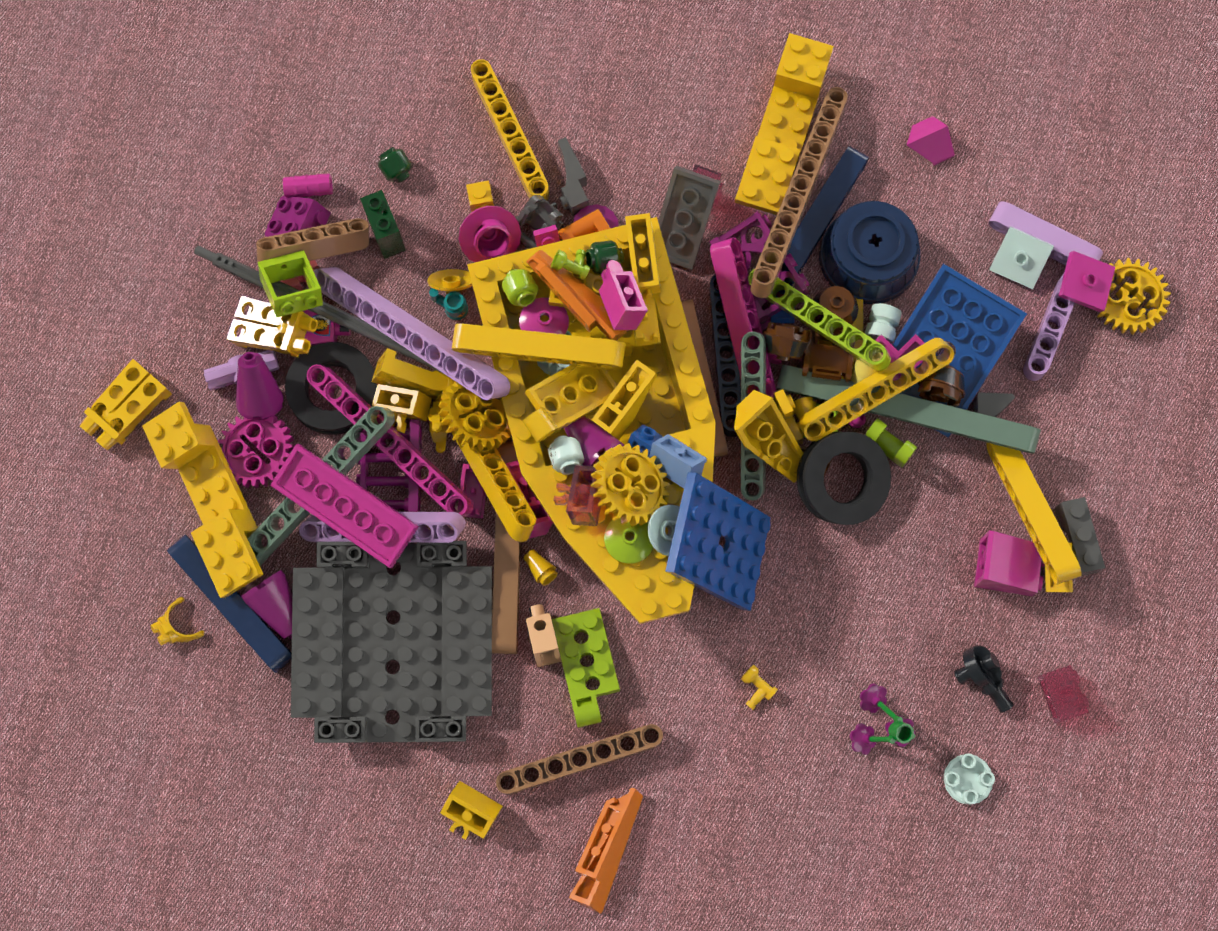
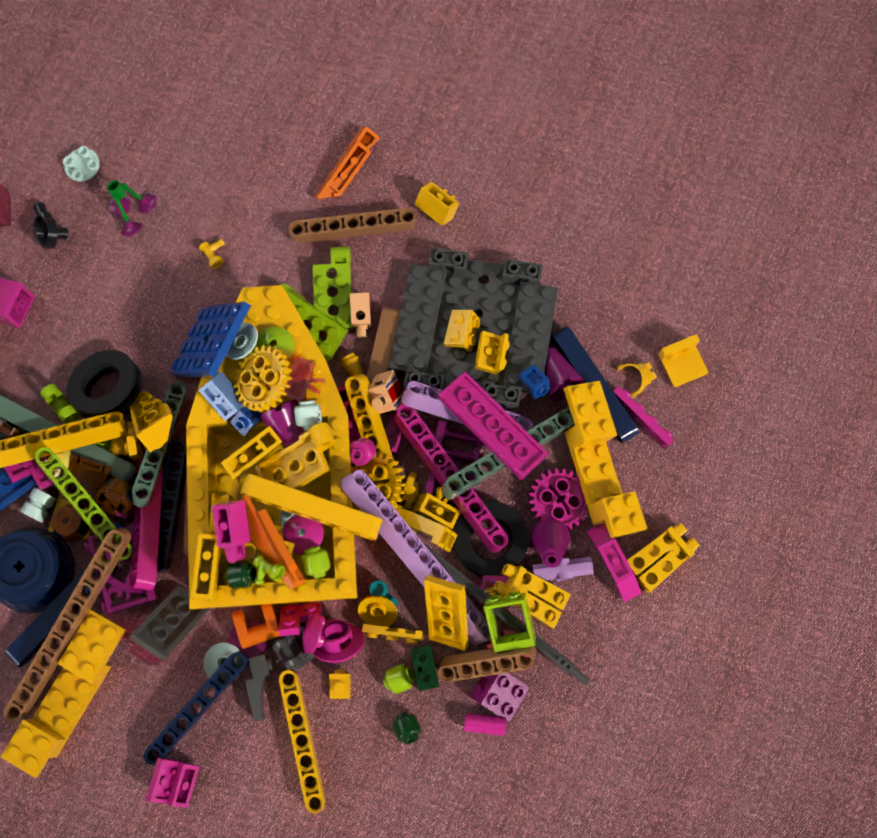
camera: 170 degrees left, 0 degrees up
(118, 654) = (683, 361): none -> yellow bracket
(171, 578) = (648, 422): none -> dark pink plate
(180, 386) = (615, 561): none -> dark pink slope
(300, 576) = (535, 381): none -> blue bracket
(361, 606) = (491, 352): none -> yellow bracket
(366, 283) = (438, 607): none -> yellow plate
(406, 633) = (462, 329): none -> yellow bracket
(413, 214) = (399, 678): none -> lime head
(426, 260) = (392, 634): none -> yellow wing
(486, 528) = (385, 392): none -> light nougat torso
(497, 438) = (362, 451): none -> dark pink head
(516, 232) = (312, 633): none -> dark pink dish
(617, 185) = (214, 658): none -> light aqua dish
(630, 149) = (188, 713): none -> dark blue beam
(641, 63) = (172, 782): none -> dark pink brick
(641, 638) = (319, 321): none -> lime hinge

